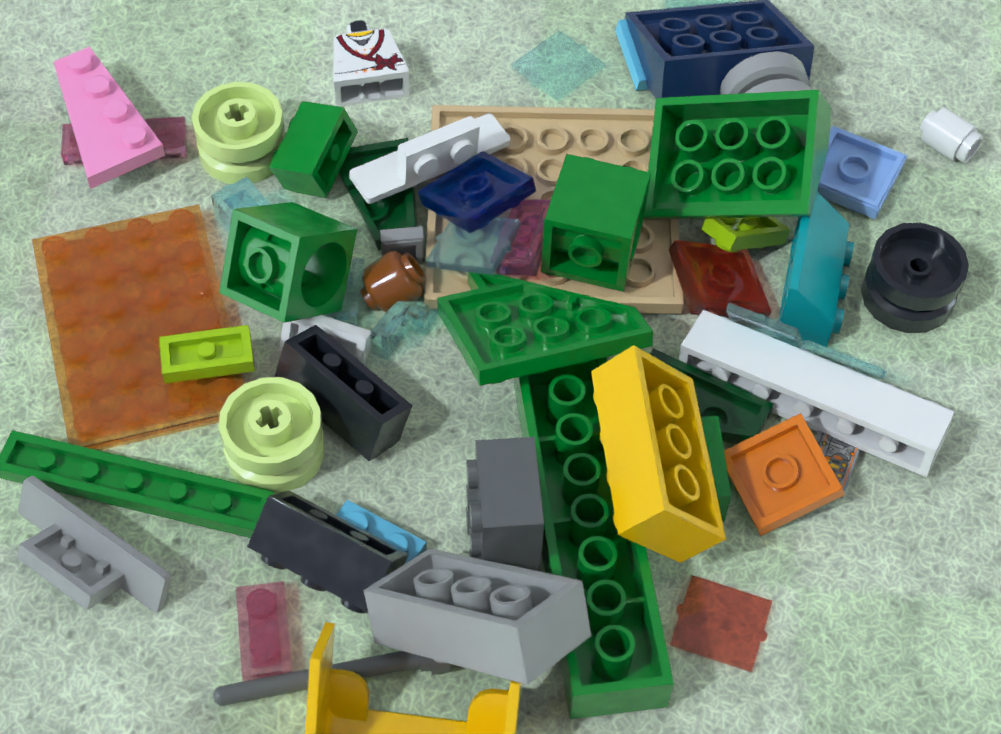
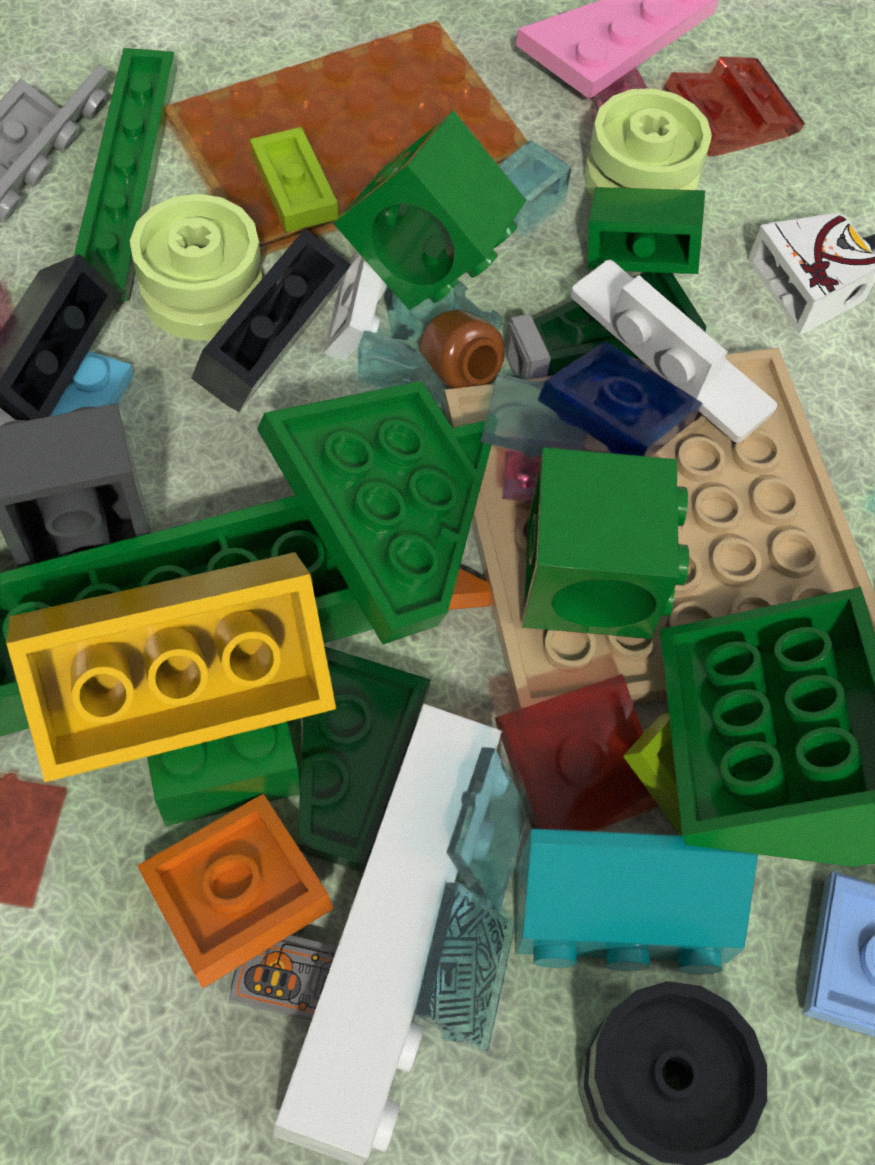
camera: 75 degrees right, 5 degrees up
(184, 72) = (739, 103): none -> clear red slope

